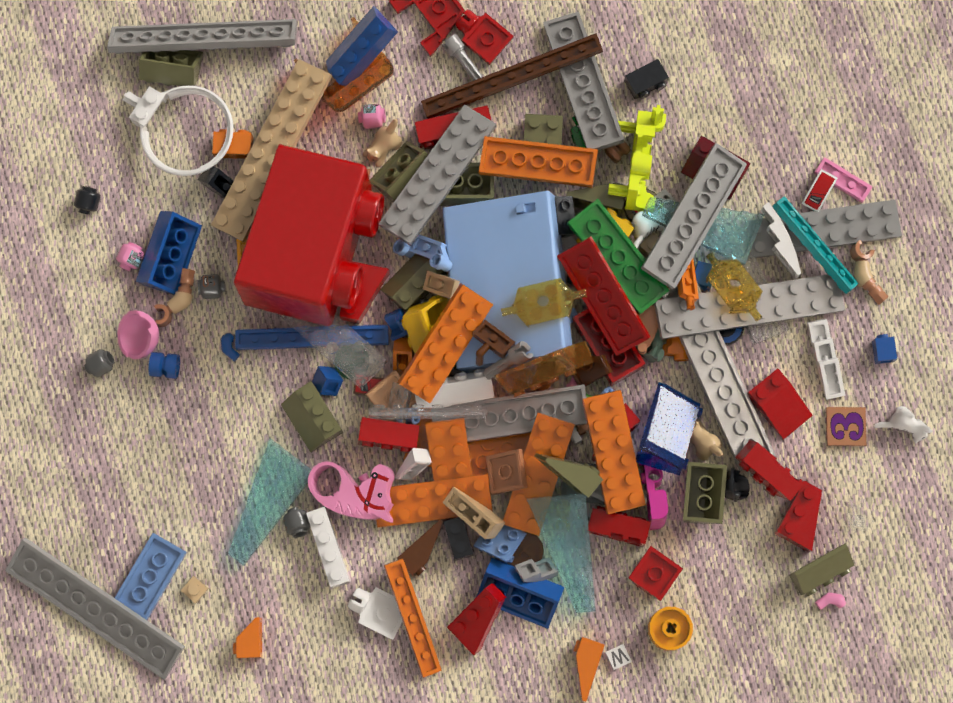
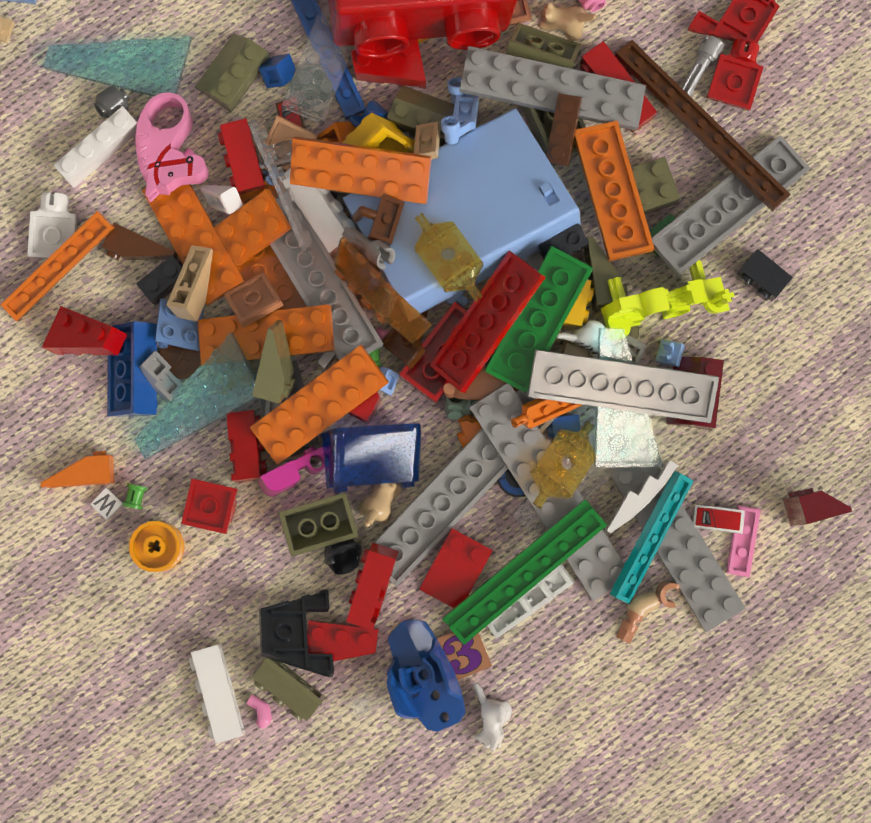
camera: 60 degrees right, 5 degrees up
(475, 178) = (563, 129): none -> reddish brown plate
(617, 151) = (663, 275): nougat wheel -> none
(629, 632) = (134, 496): none -> bright green bush
(677, 173) = (670, 353): none -> light blue tile
(782, 552) = (285, 633): none -> black wing
(804, 351) = (524, 571): none -> green plate
(804, 627) = (217, 693): none -> white brick
(841, 117) = (810, 506): none -> dark red slope
(846, 462) = (417, 671): none -> blue piece
(884, 349) = (566, 661): blue brick -> none

